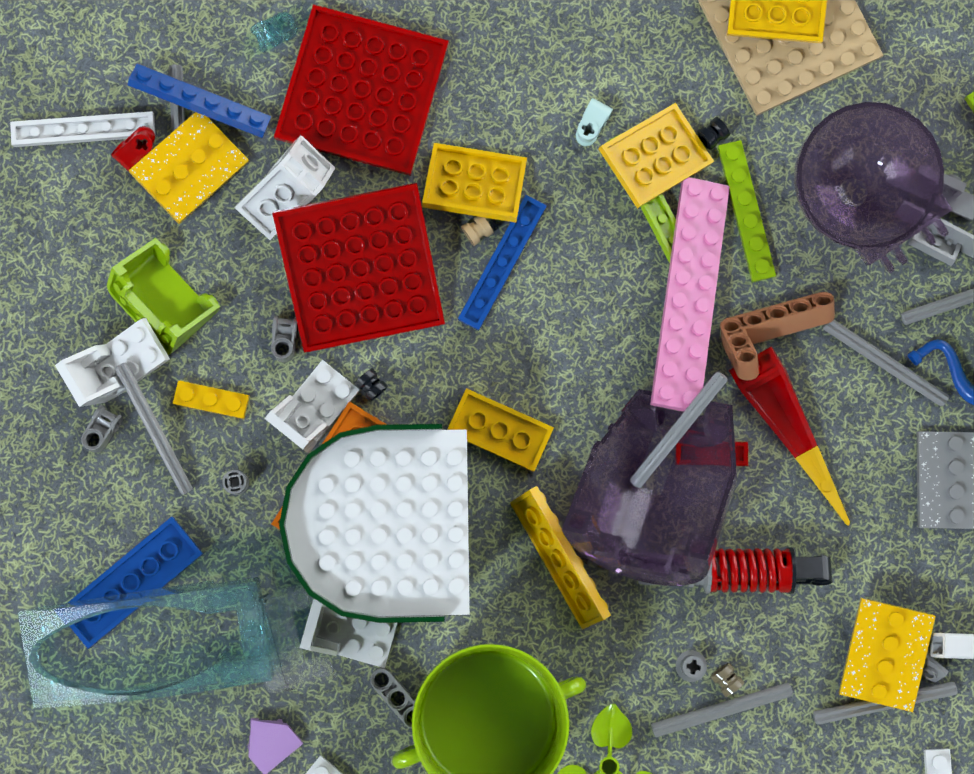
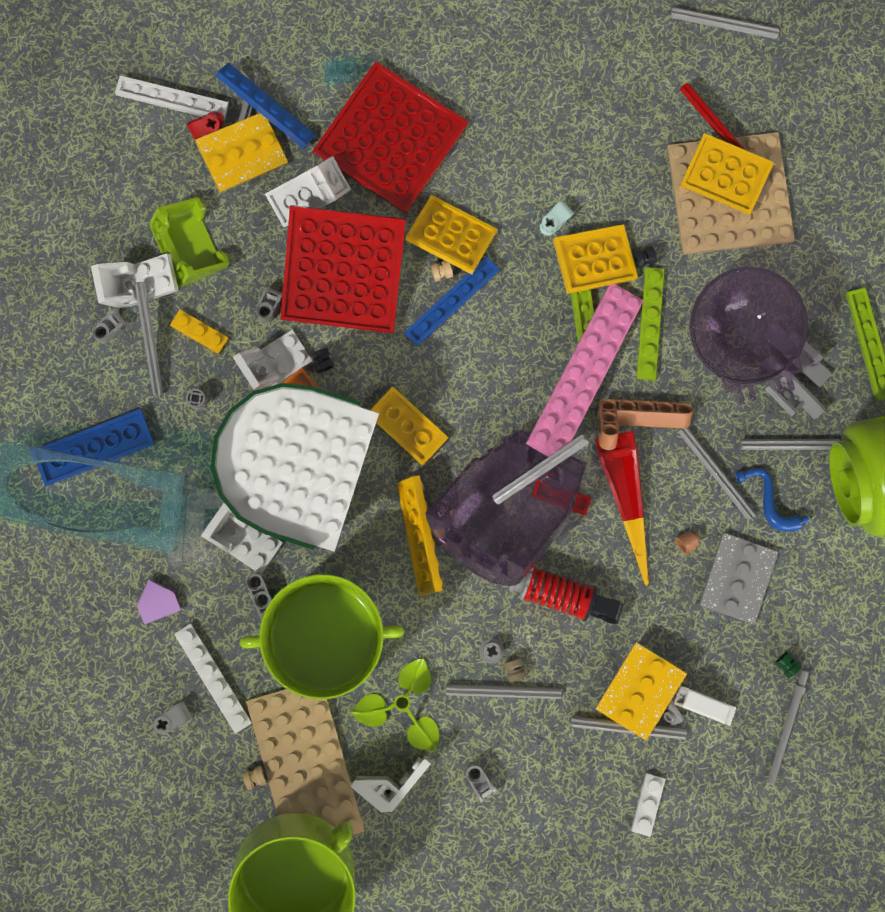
camera: 15 degrees right, 0 degrees up
(880, 457) = (687, 542): none -> nougat hat

